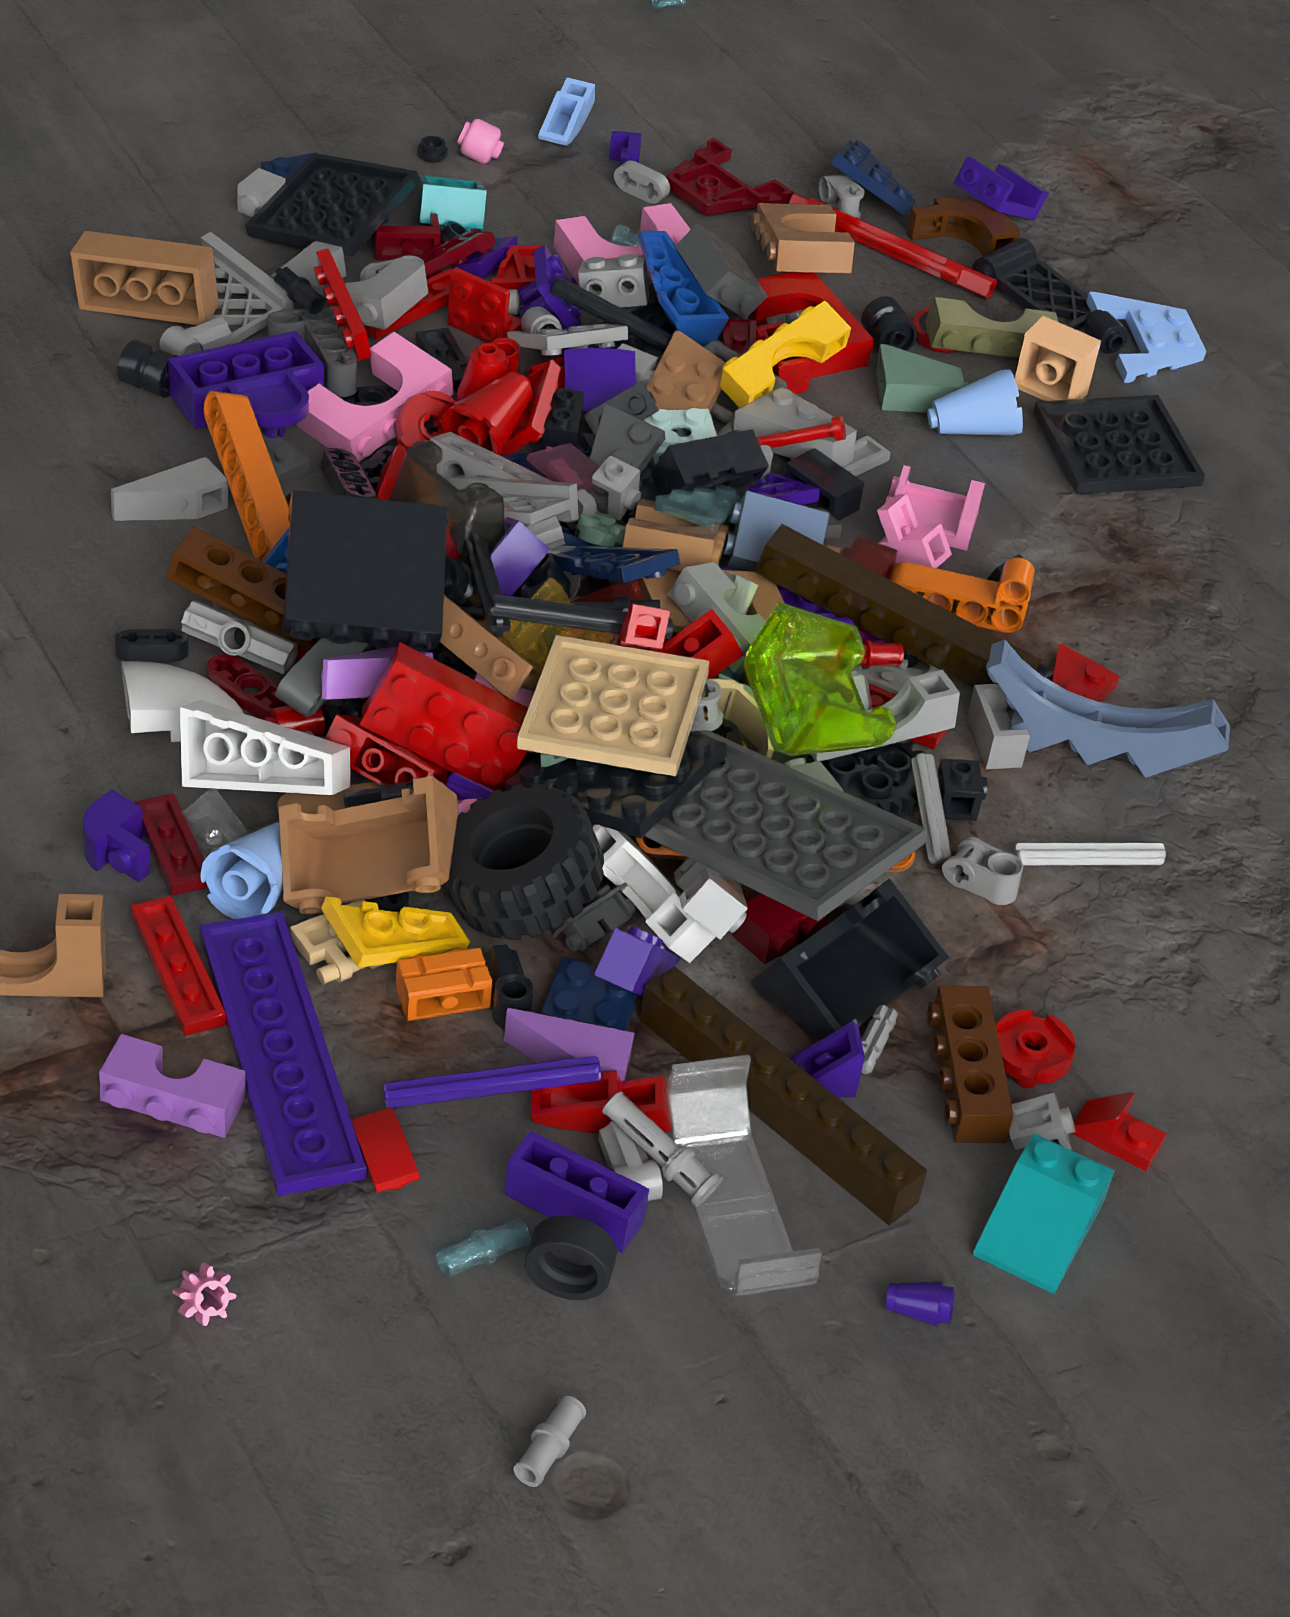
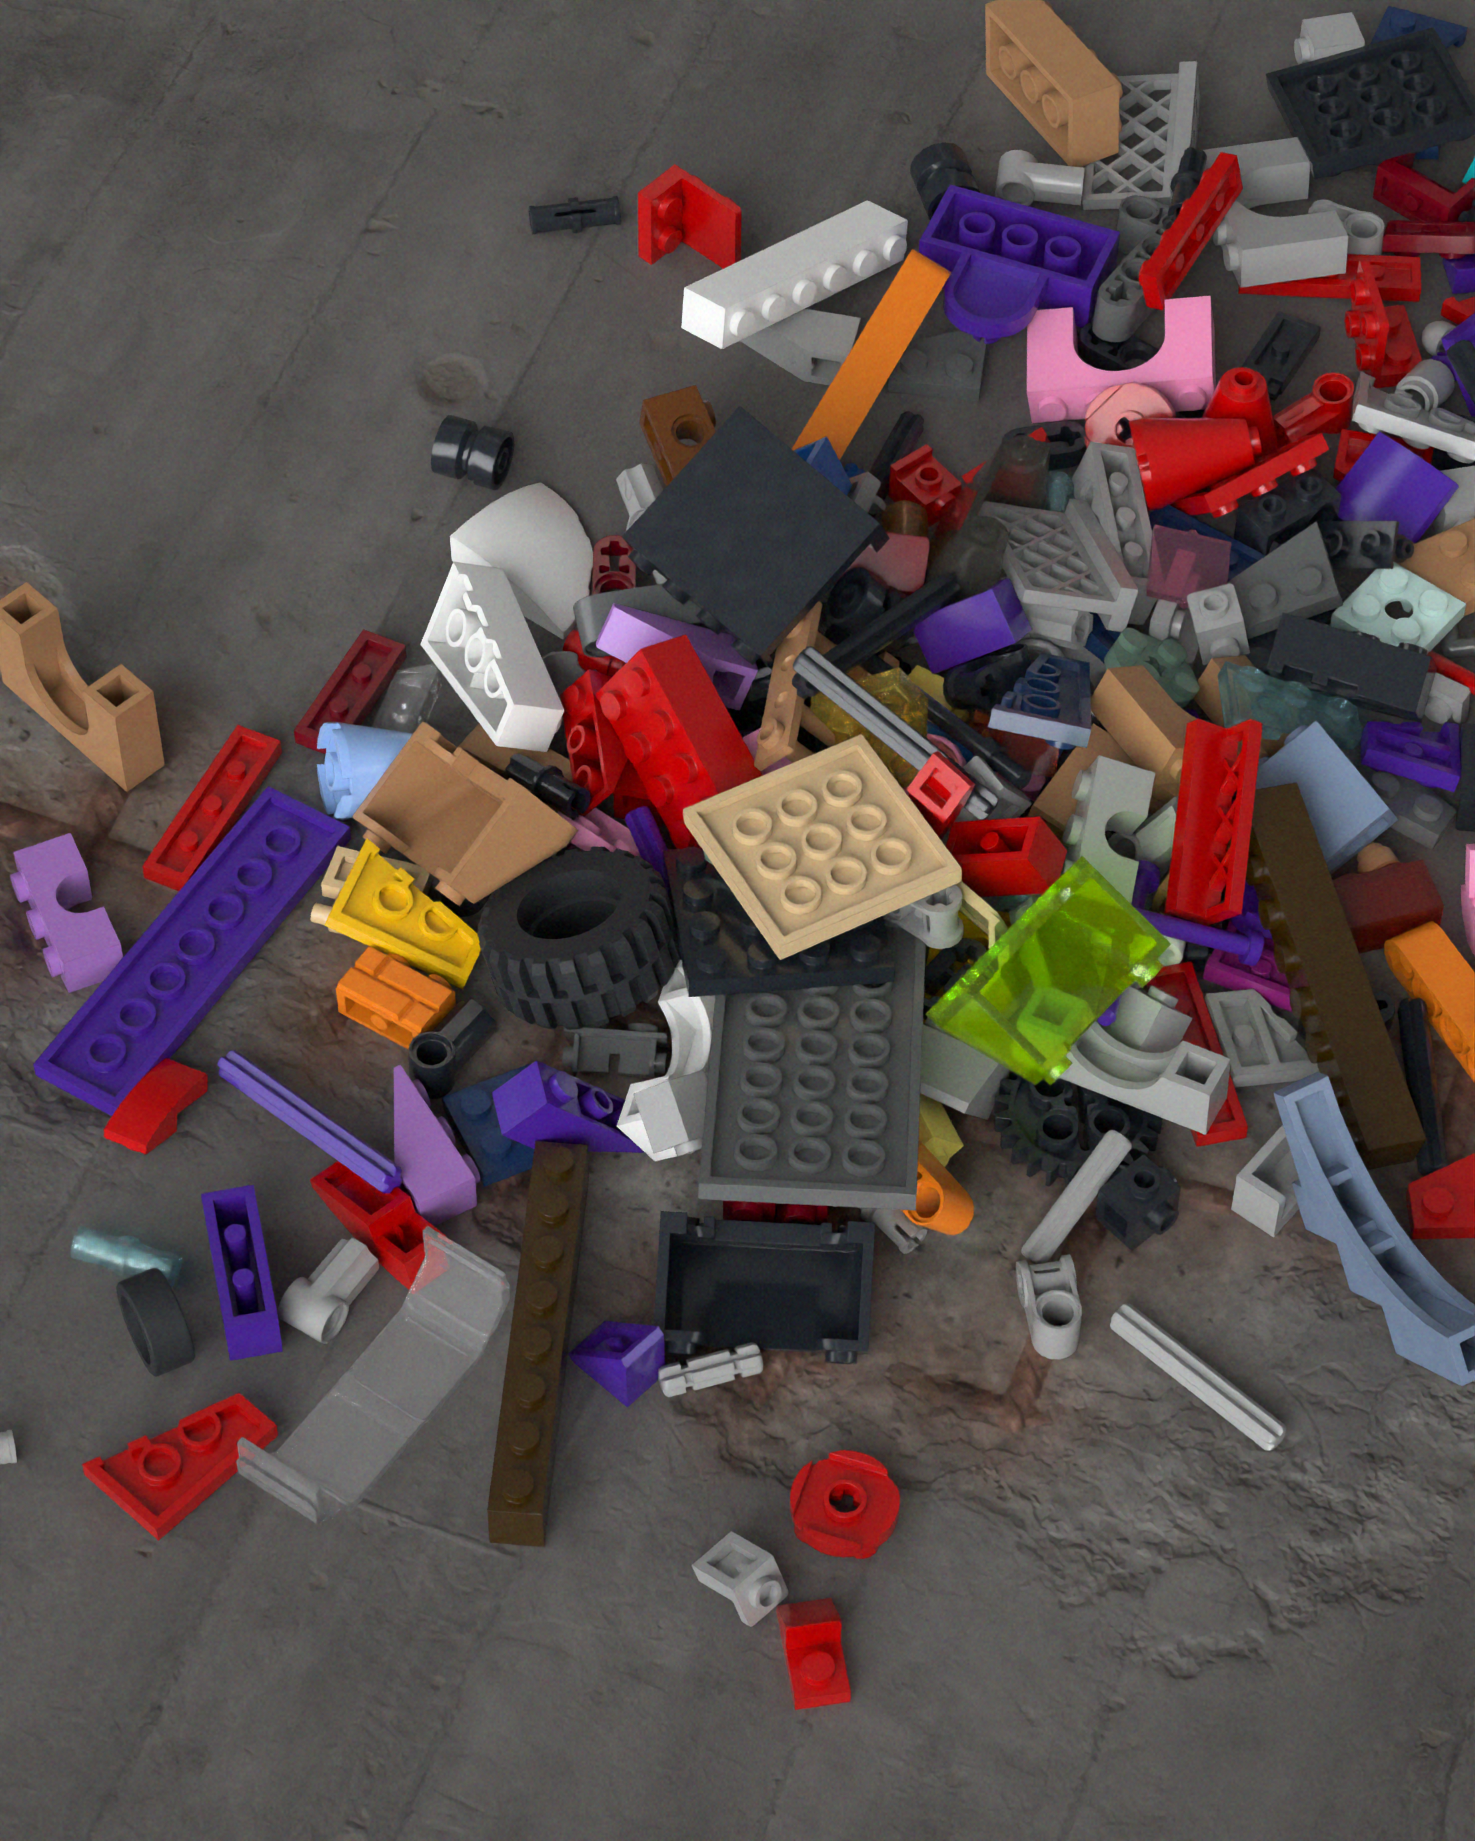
camera: 55 degrees right, 10 degrees up
(37, 461) = (686, 210): none -> red bracket
(59, 666) = (466, 450): none -> black wheel
(114, 836) = (308, 641): dark purple brick -> none
(144, 453) = (793, 274): none -> white brick
(151, 645) = (581, 485): black beam -> none
(345, 474) = (973, 436): black beam -> none
(676, 1161) = (353, 1319): light grey pin -> none
(683, 1329) = (178, 1470): none -> red wing
(756, 568) = (1208, 821): none -> red fence
(882, 654) = (1238, 991): red axle -> none
(922, 1301) = (407, 1629): dark purple cone -> none
(970, 1064) = (808, 1403): reddish brown brick -> none
(1044, 1213) = (620, 1654): teal slope -> none

